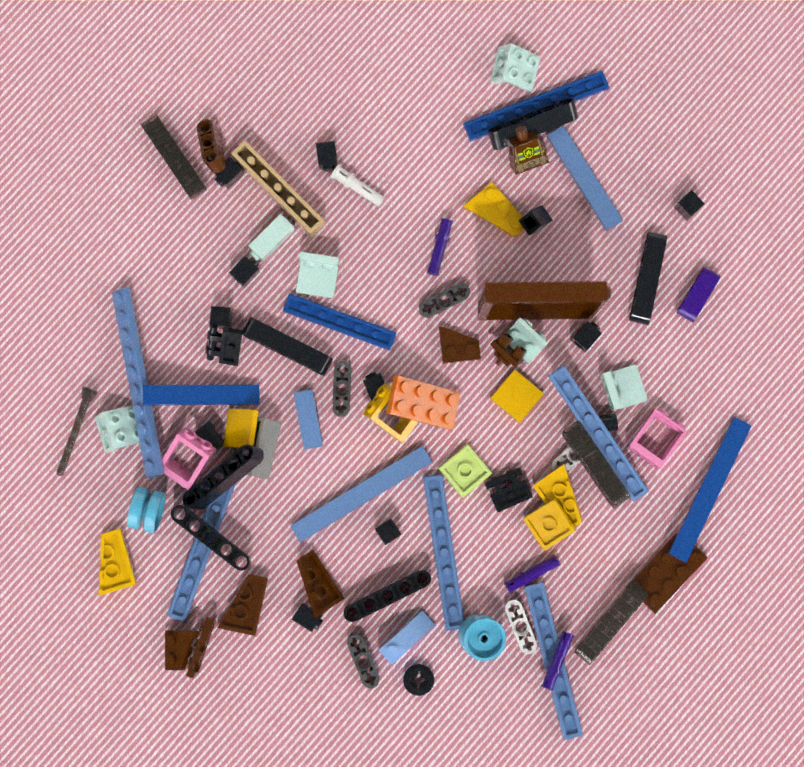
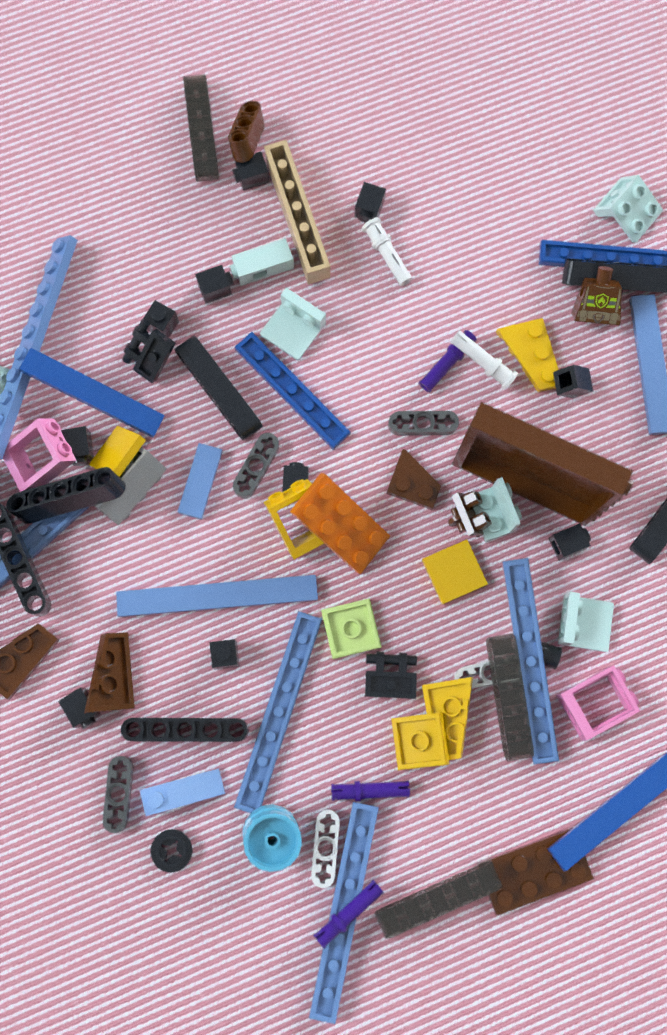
camera: 30 degrees right, 5 degrees down
(473, 236) = (492, 366): none -> white pin

